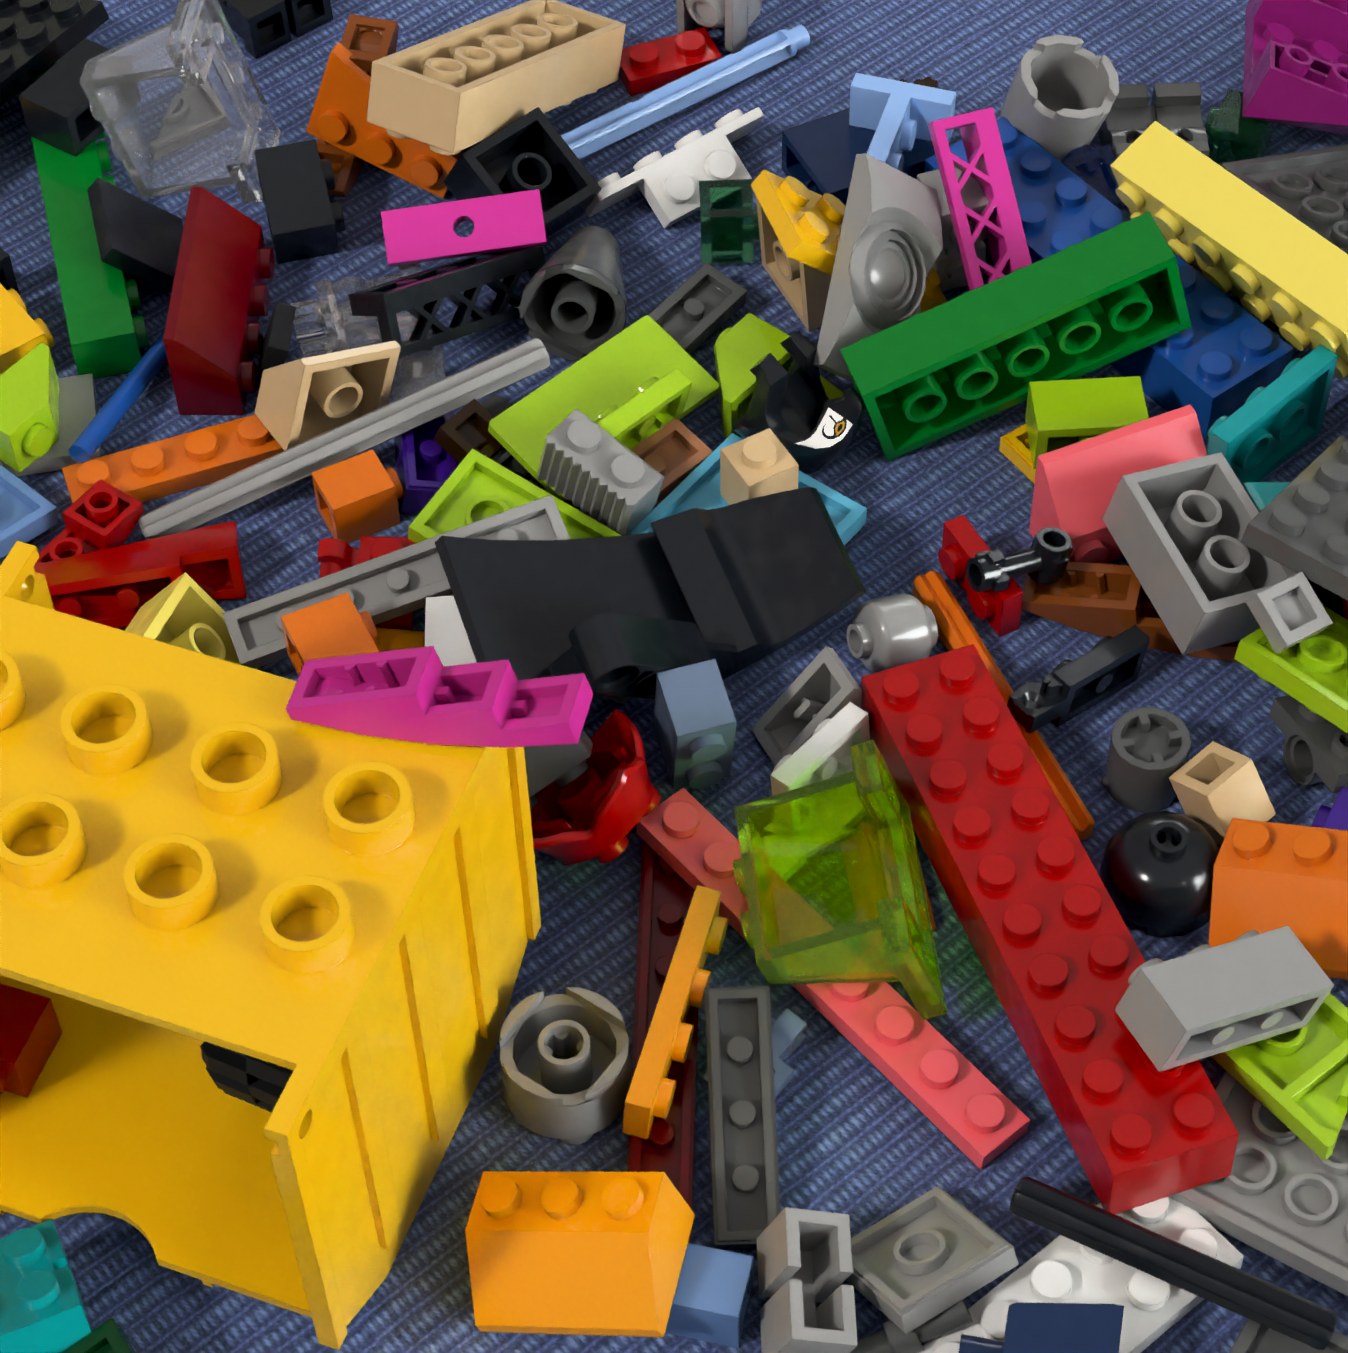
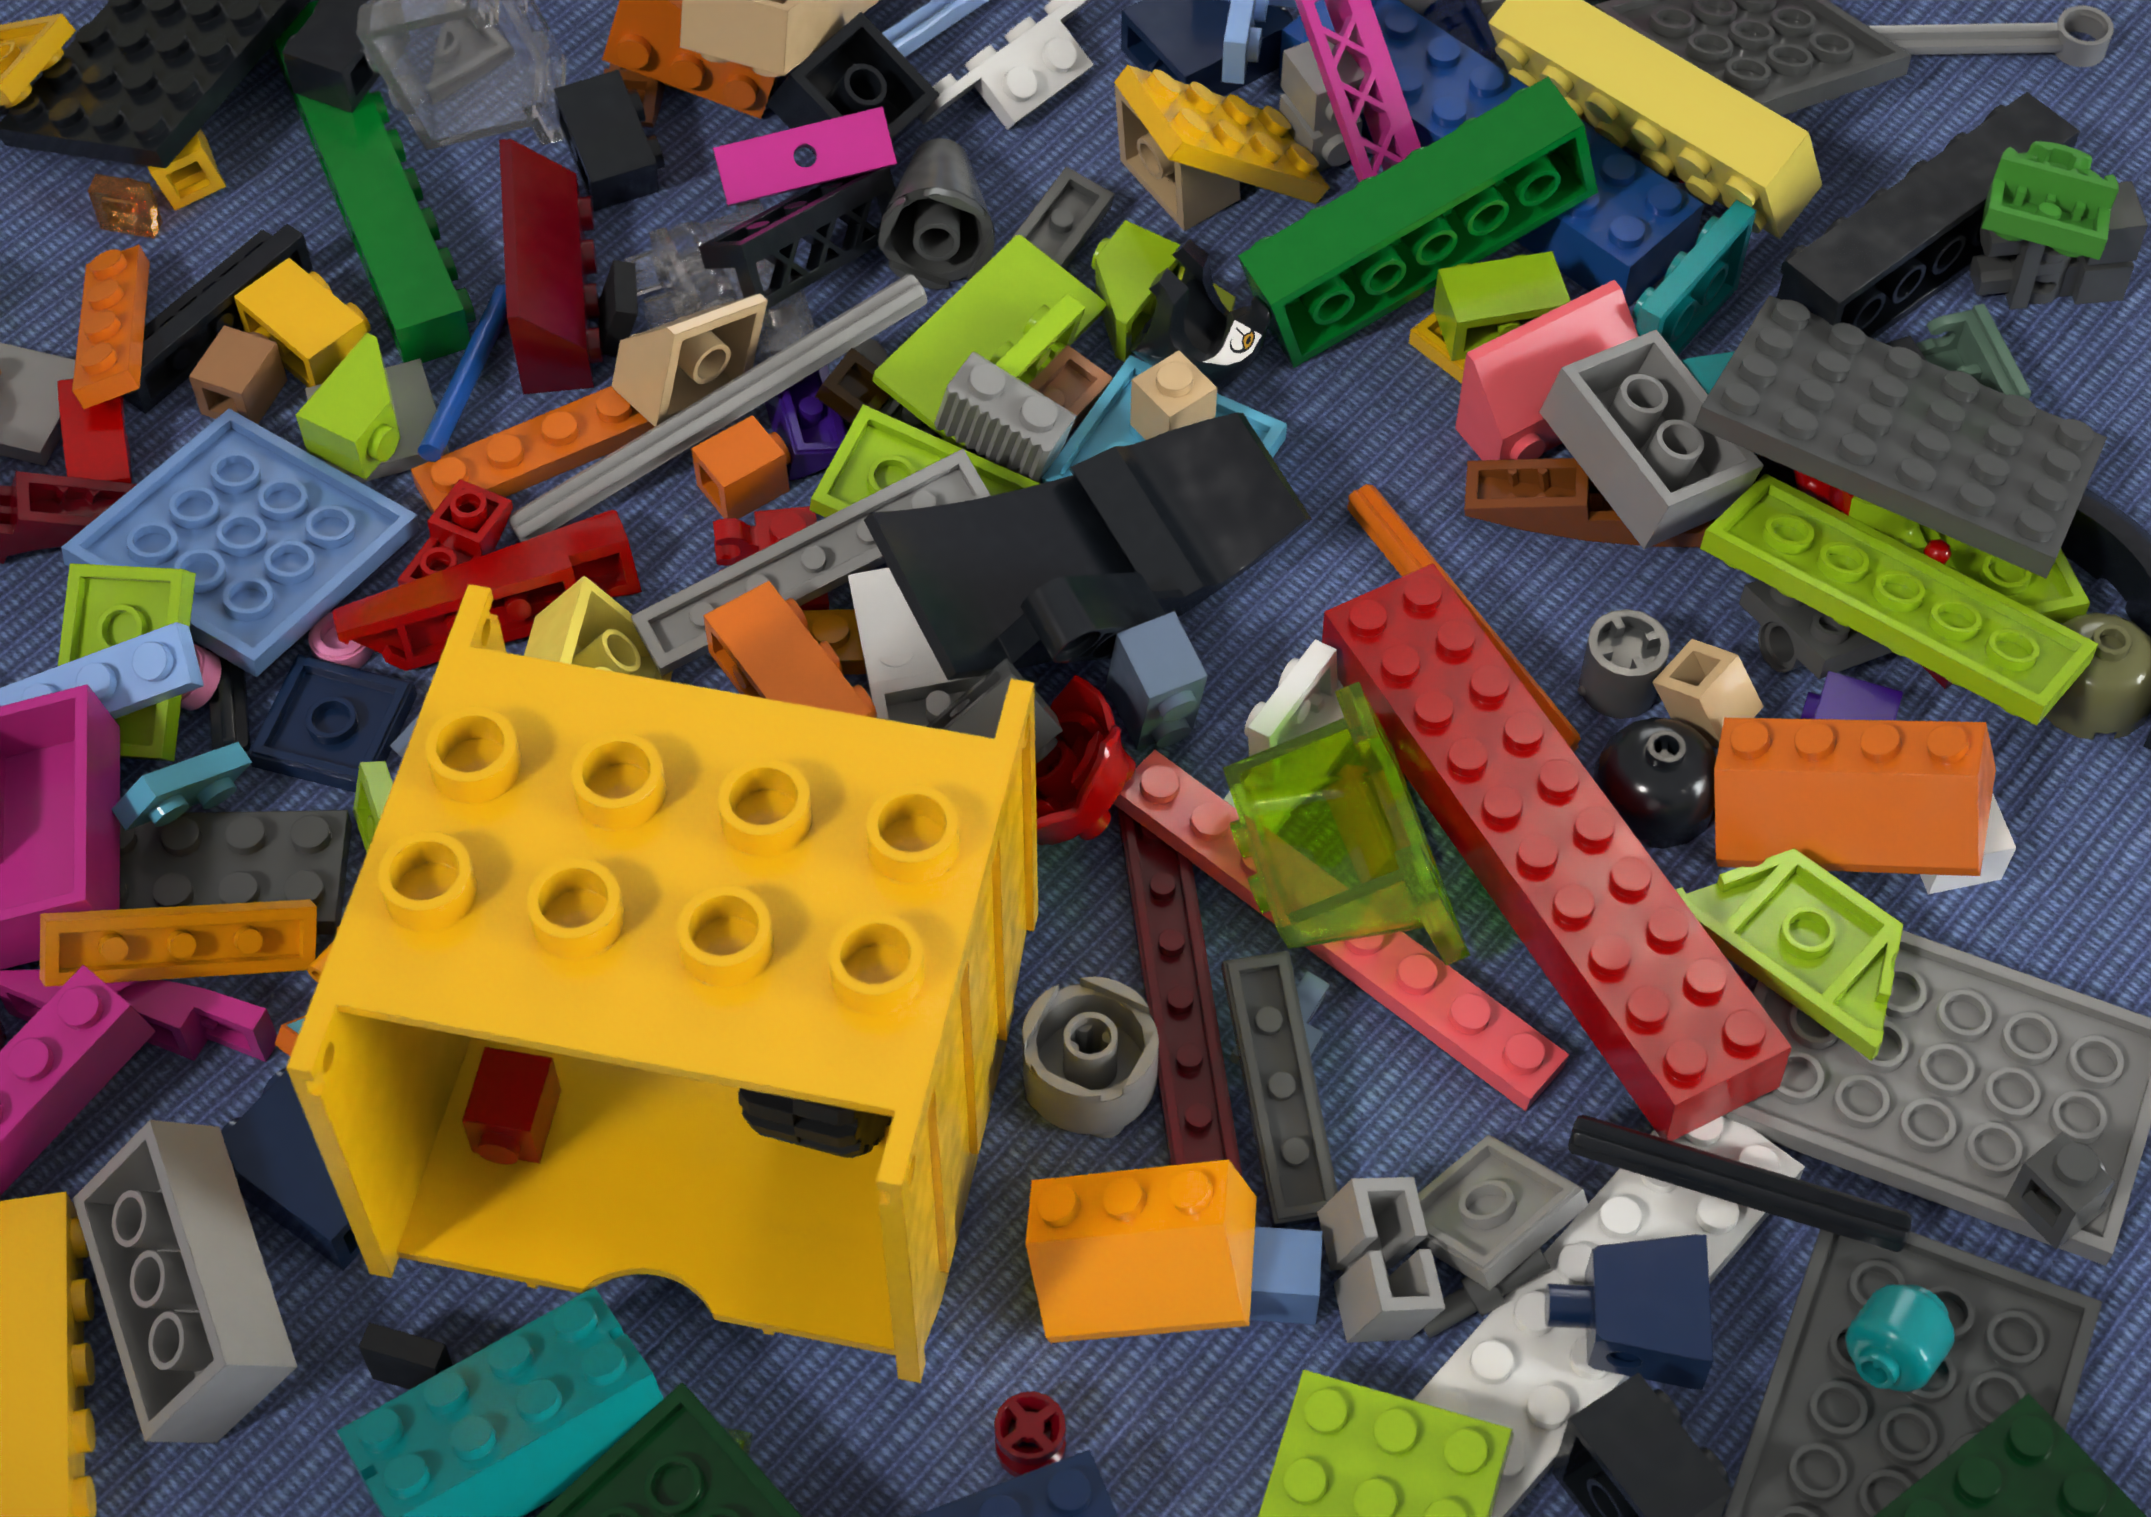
camera: 10 degrees left, 5 degrees up
(135, 234) = (444, 200): black tile -> none
(419, 700) = (942, 713): dark pink slope -> none
(668, 1034) = (1192, 1013): light orange plate -> none
(727, 221) = (1080, 117): clear green brick -> none
(810, 699) = (1258, 656): light grey slope -> none
(881, 258) = (1264, 152): light grey slope -> none
(892, 632) = (1338, 557): light grey head -> none
(999, 608) = (1418, 484): red plate -> none
(1042, 562) = (1484, 465): black bar -> none
(1081, 682) = (1543, 590): black hinge -> none
(1222, 997) = (1754, 908): light grey brick -> none
(1289, 612) = (1753, 495): light grey plate -> none

